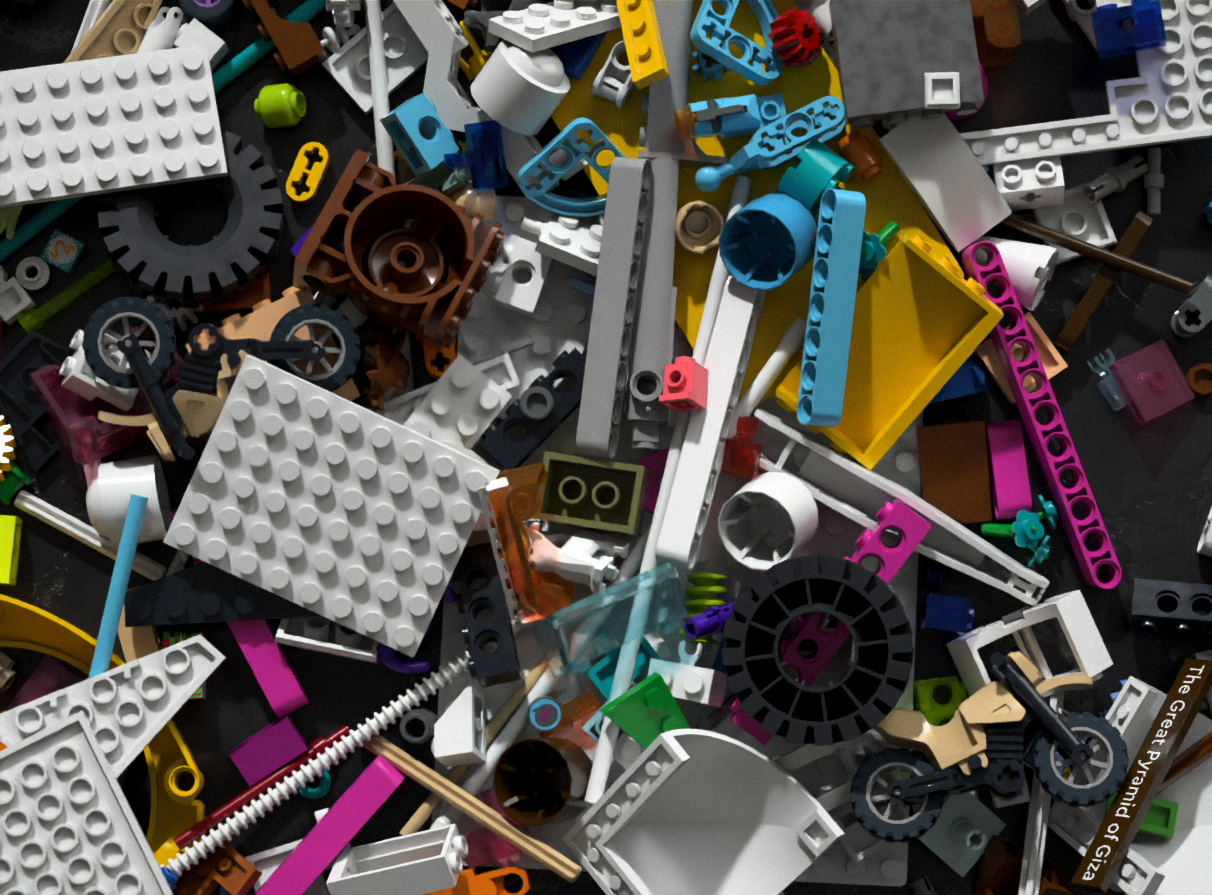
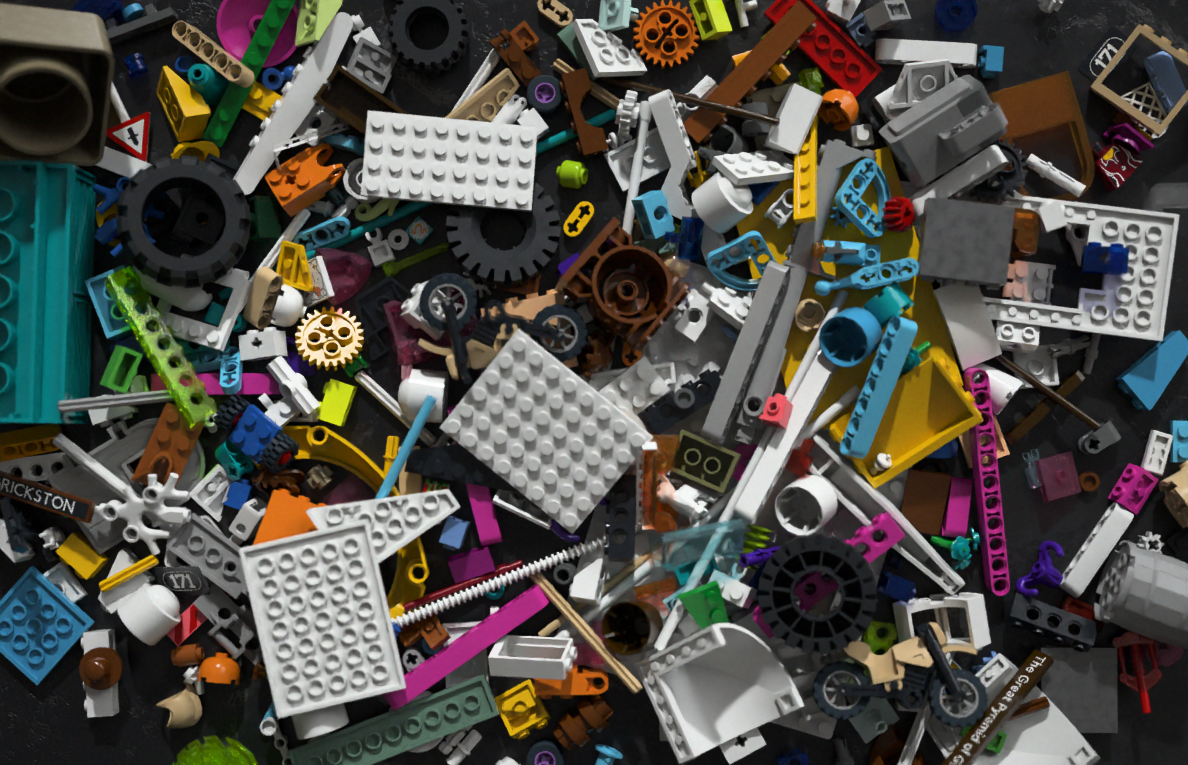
camera: 15 degrees right, 5 degrees up
(98, 595) = (391, 452): none -> yellow axle
(228, 705) = (454, 533): none -> medium blue brick
(544, 713) = (642, 586): tile -> none
(862, 155) = (920, 296): orange brick -> none
(870, 426) = (883, 461): none -> white hair
(942, 90) = (982, 272): white tile -> none
(1028, 95) = (1029, 282): none -> white plate
(1167, 535) = (1042, 571): none -> dark purple piece

